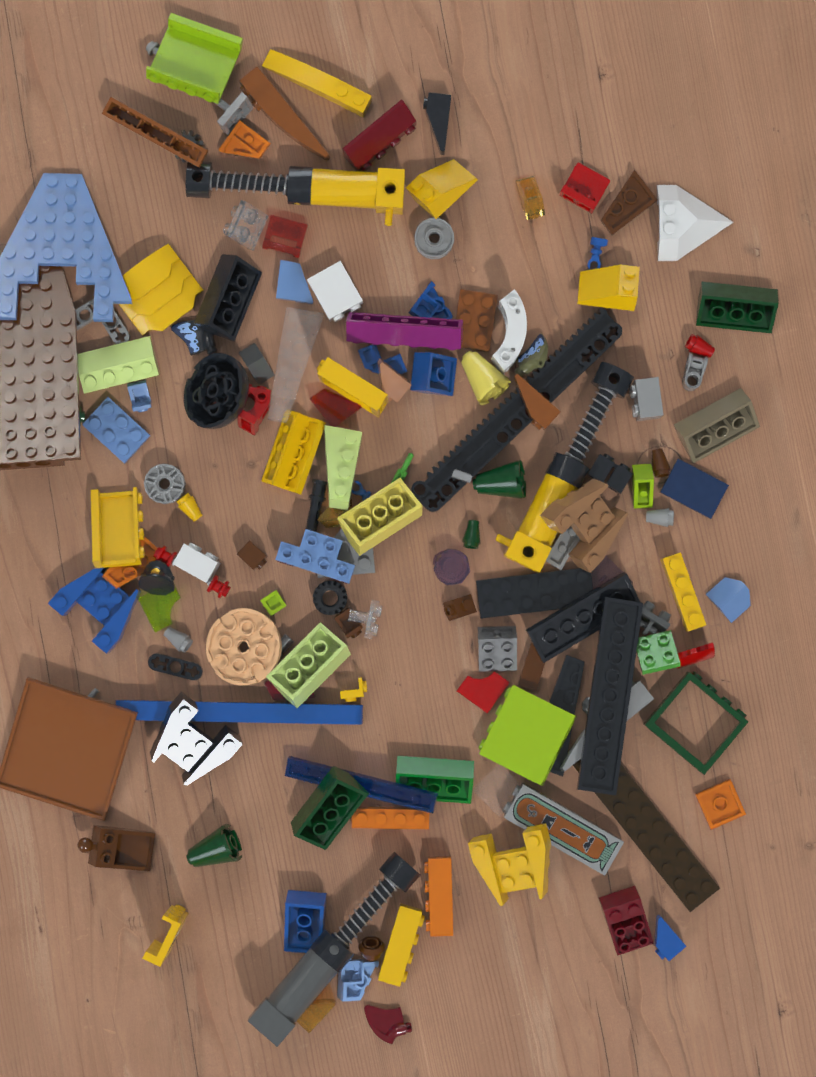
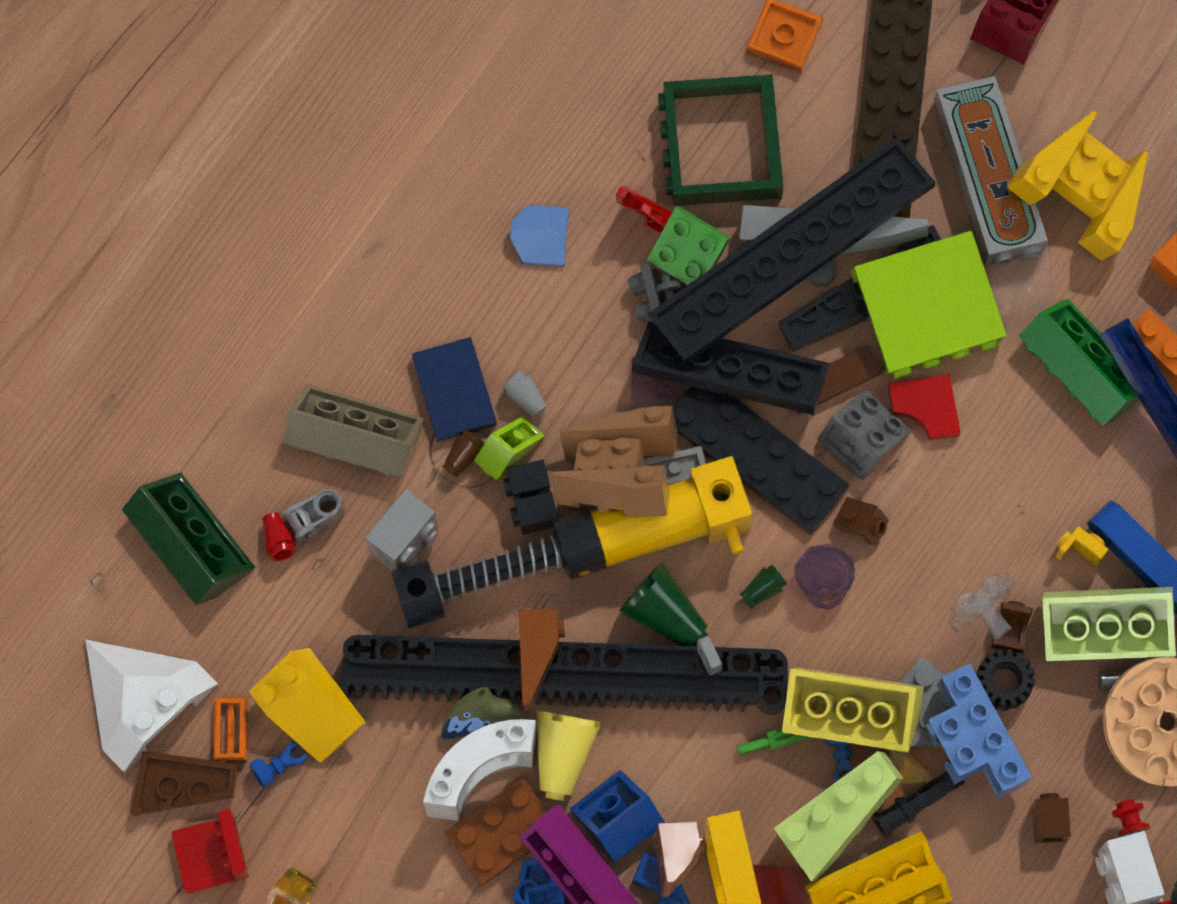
camera: 135 degrees left, 15 degrees down
(273, 603) = (1079, 740): lime plate -> none
(643, 258) = (230, 756): none -> orange tile
(683, 592) = (587, 288): yellow brick -> none

